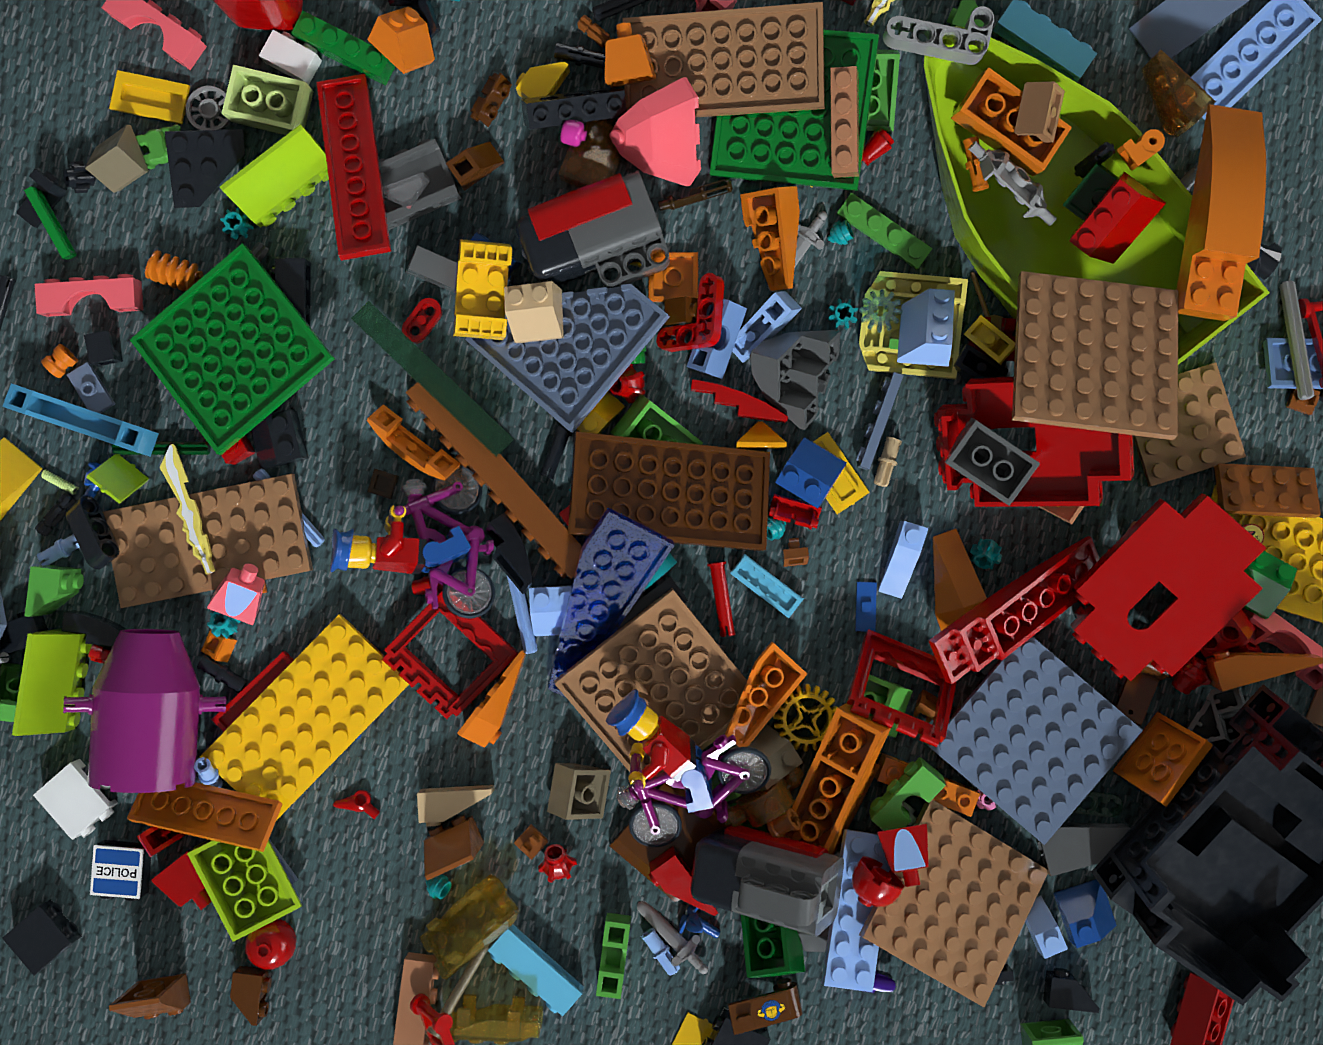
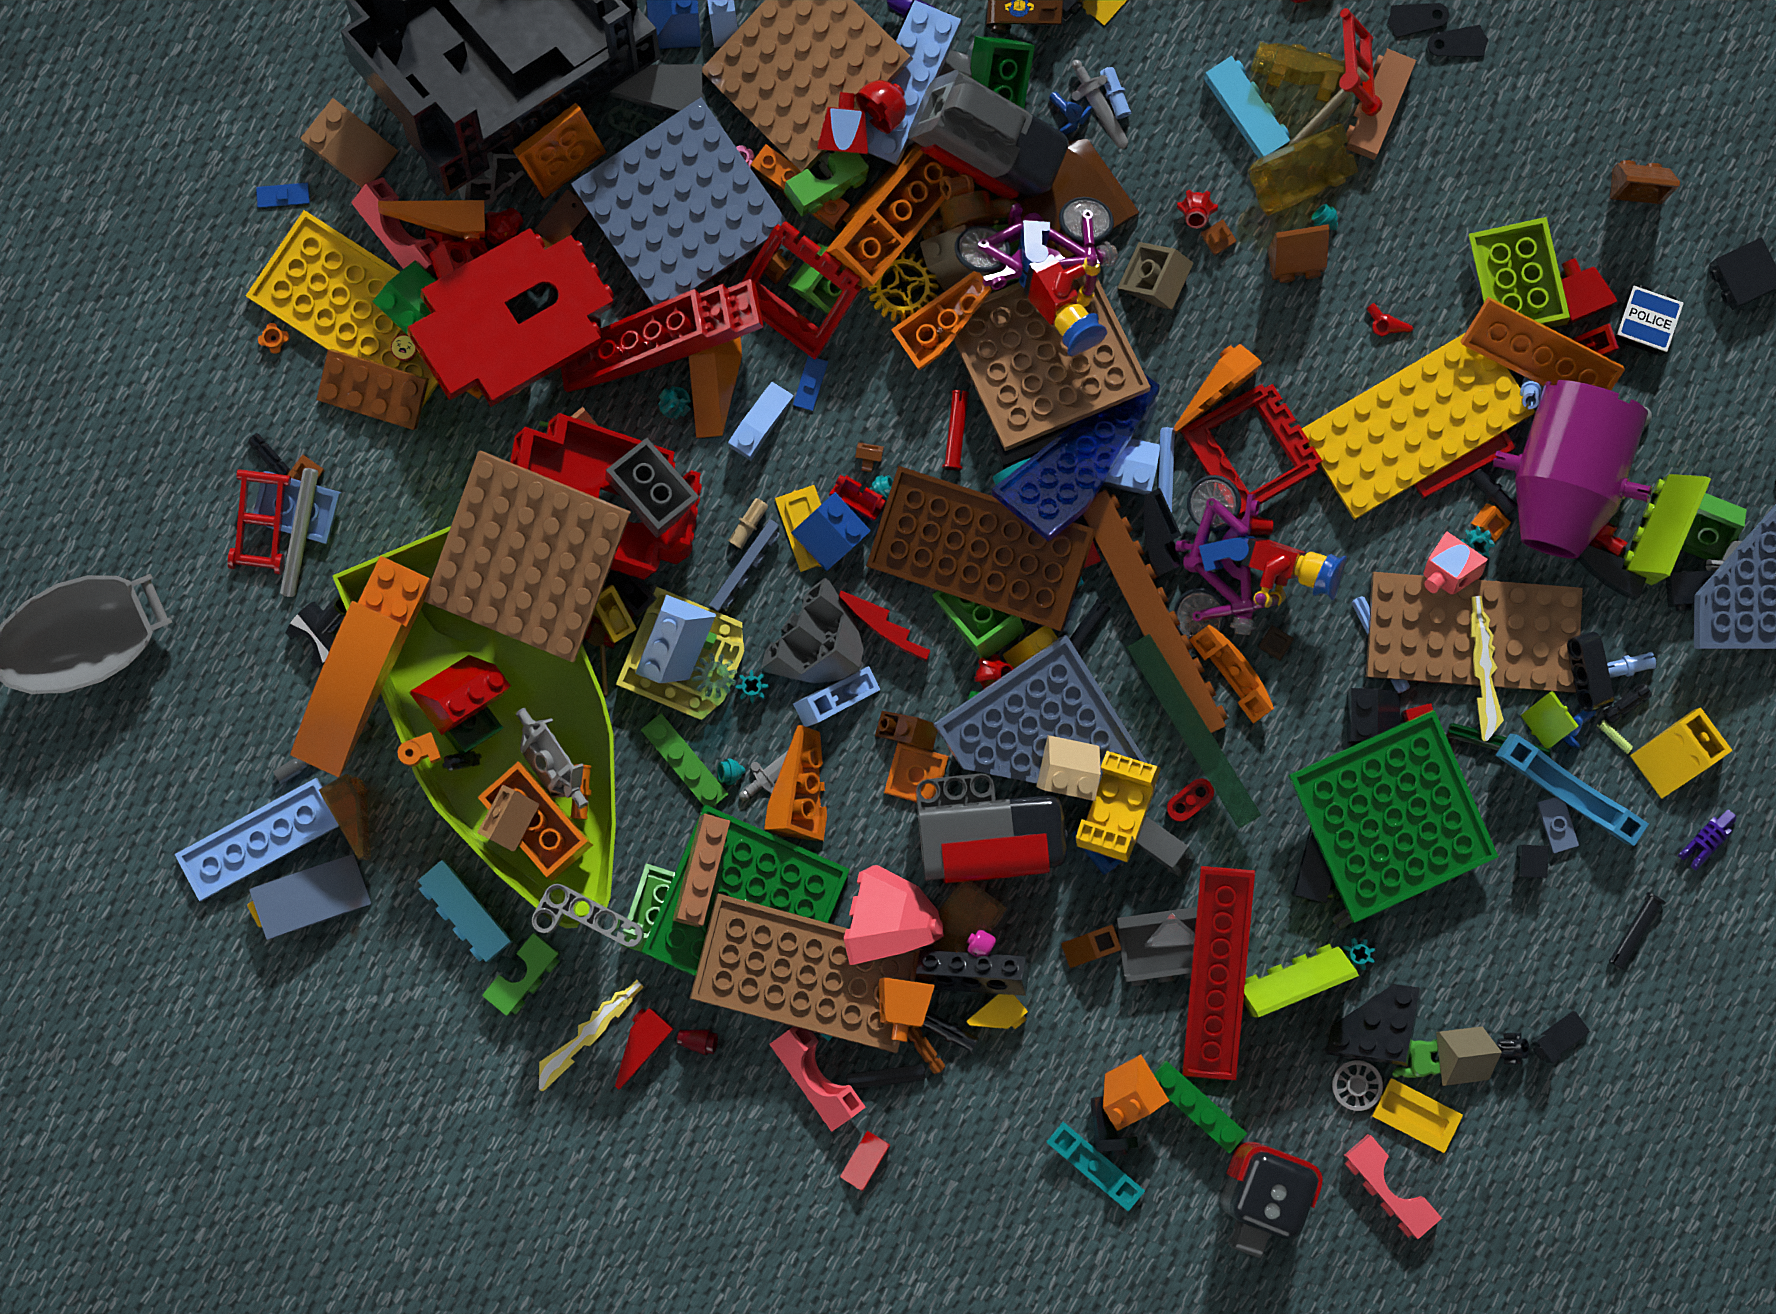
camera: 165 degrees left, 5 degrees down
(50, 223) = (1553, 1006): green tile -> none
(51, 588) = (1644, 627): bright green slope -> none
(59, 298) = (1566, 927): coral arch -> none
(59, 361) = (1582, 861): orange wheel -> none
(73, 802) = (1678, 402): white panel -> none
(172, 272) = (1437, 920): orange piece -> none
(249, 992) = (1546, 163): reddish brown slope -> none
(266, 100) = (1292, 1070): yellowish green brick -> none
(271, 945) = (1512, 203): red cylinder -> none
(290, 57) = (1256, 1114): white piece -> none
(440, 804) = (1296, 299): tan slope -> none
(486, 109) = (1064, 1002): reddish brown hinge -> none
(613, 955) = (1163, 102): bright green arch -> none
(674, 877) = (1080, 161): red slope -> none
(696, 195) = (869, 853): dark brown piece -> none
(699, 329) = (903, 706): red beam -> none
(715, 359) = (897, 678): medium blue arch -> none
(761, 437) = (871, 583): light orange slope -> none
(766, 585) = (907, 431): medium azure plate -> none
(877, 145) = (668, 851): red cone -> none
(1204, 430) = (426, 475): medium nougat plate -> none

